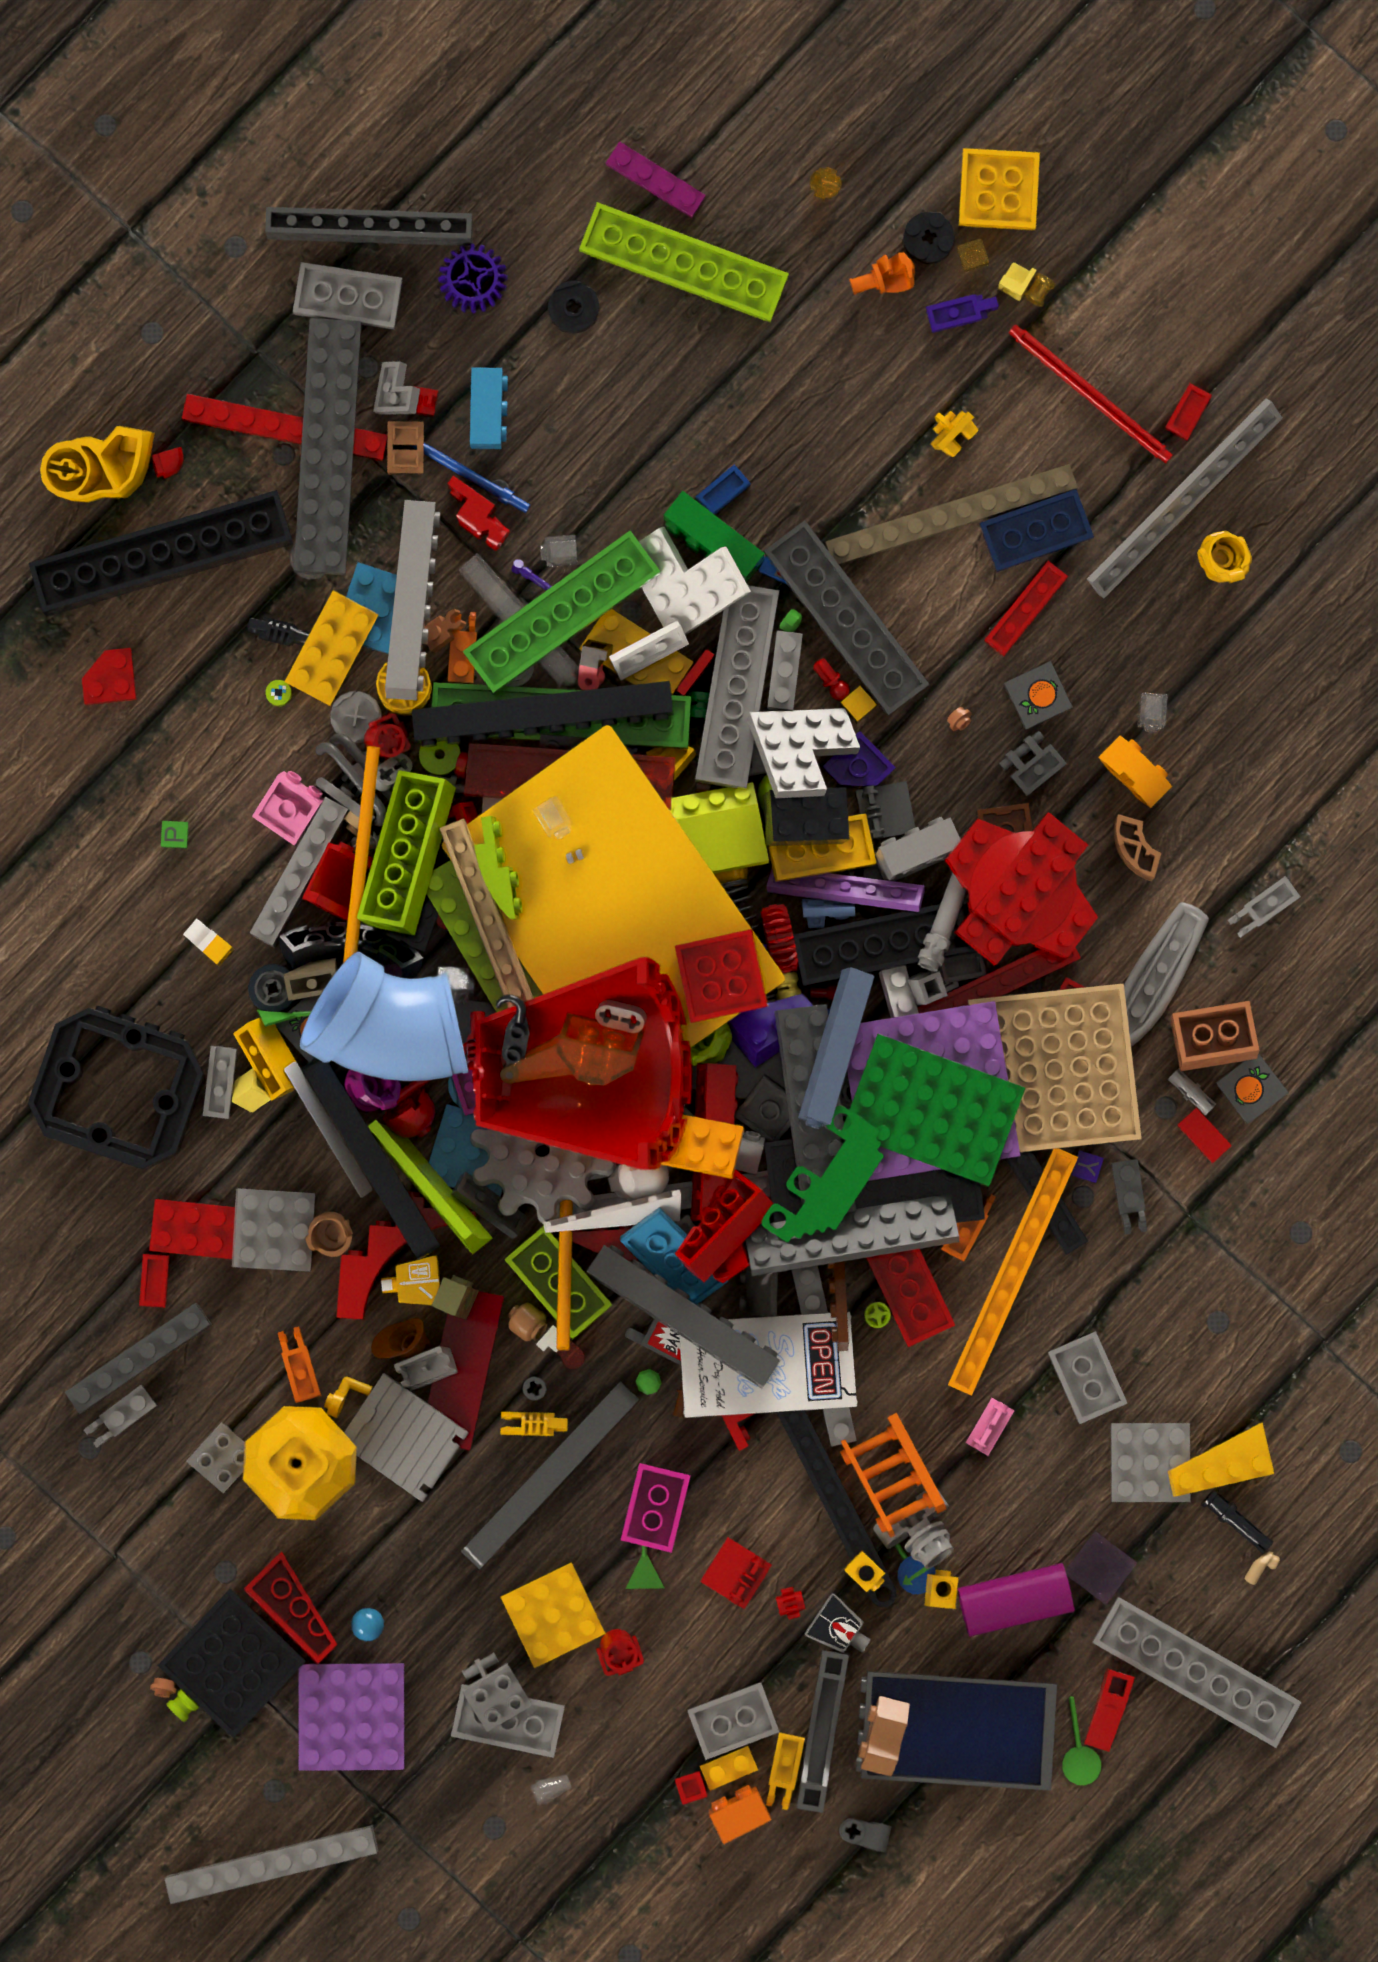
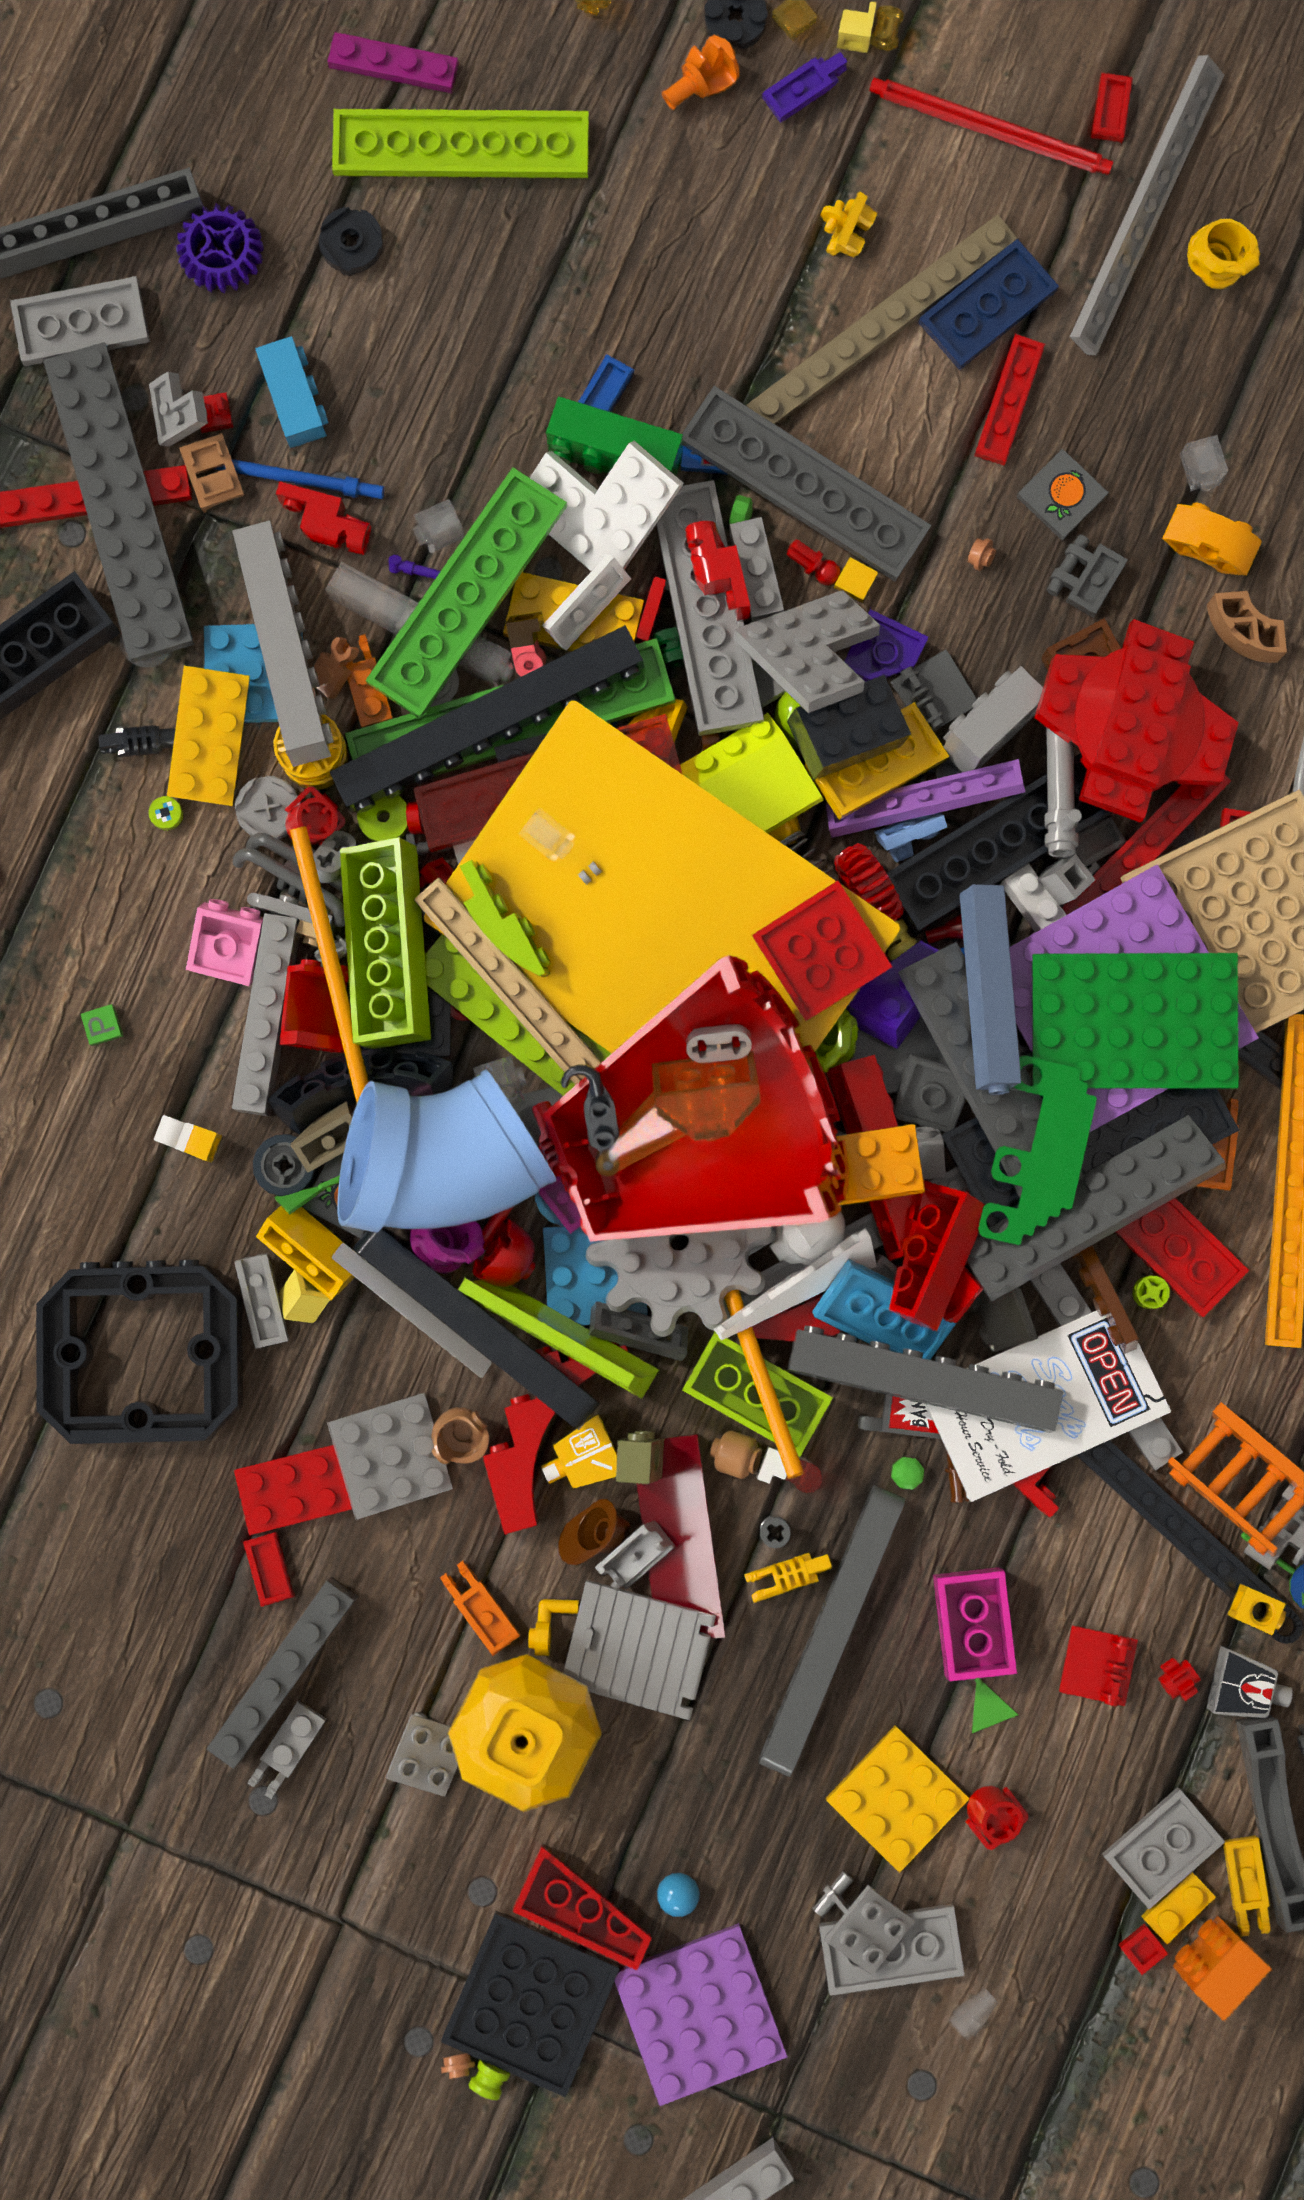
camera: 15 degrees left, 0 degrees up
(754, 660) = (717, 567): none -> red plate

